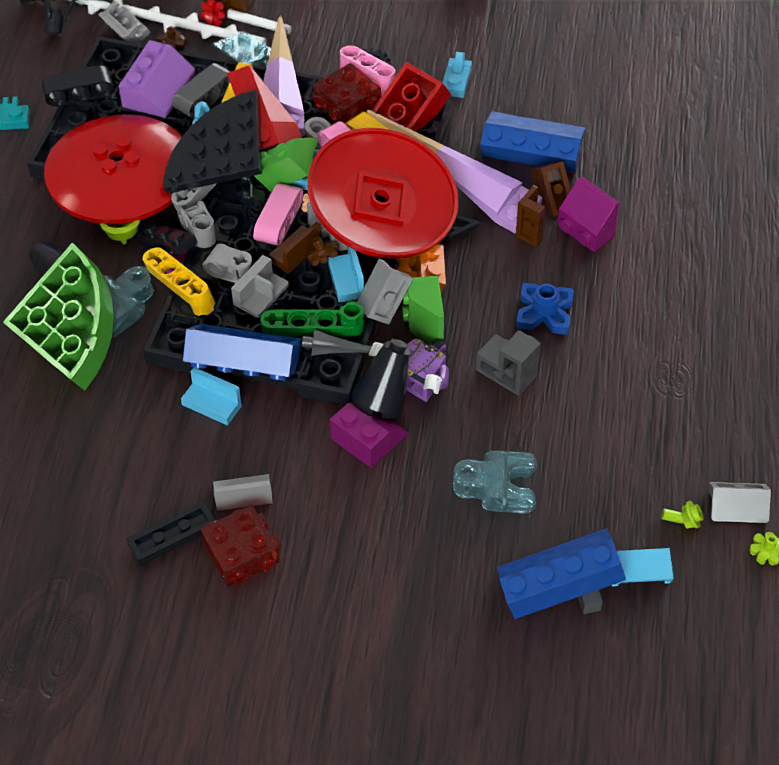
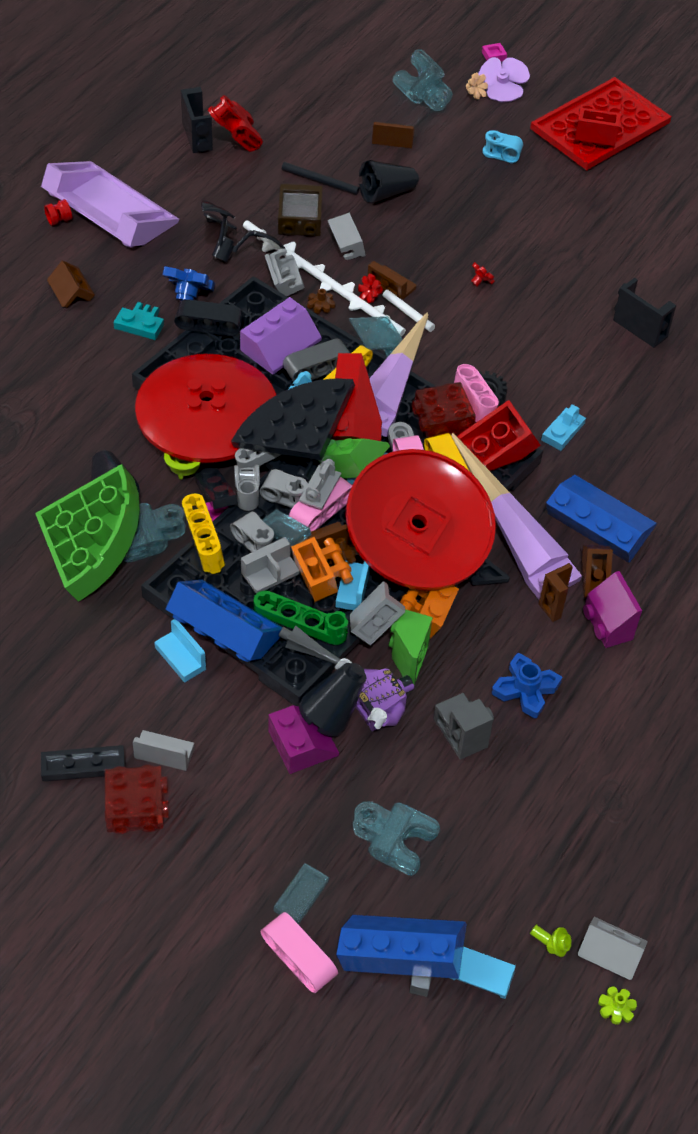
camera: 20 degrees right, 0 degrees up
(36, 62) = (188, 282): none -> blue plant
(234, 213) = (282, 487): none -> light grey piece
(259, 246) = (287, 527): none -> clear light blue tile
(272, 195) = (321, 485): none -> light grey hinge
(306, 273) = (315, 569): none -> orange brick
(440, 568) = (301, 893): none -> clear light blue tile
(468, 618) = (299, 952): none -> bright pink beam

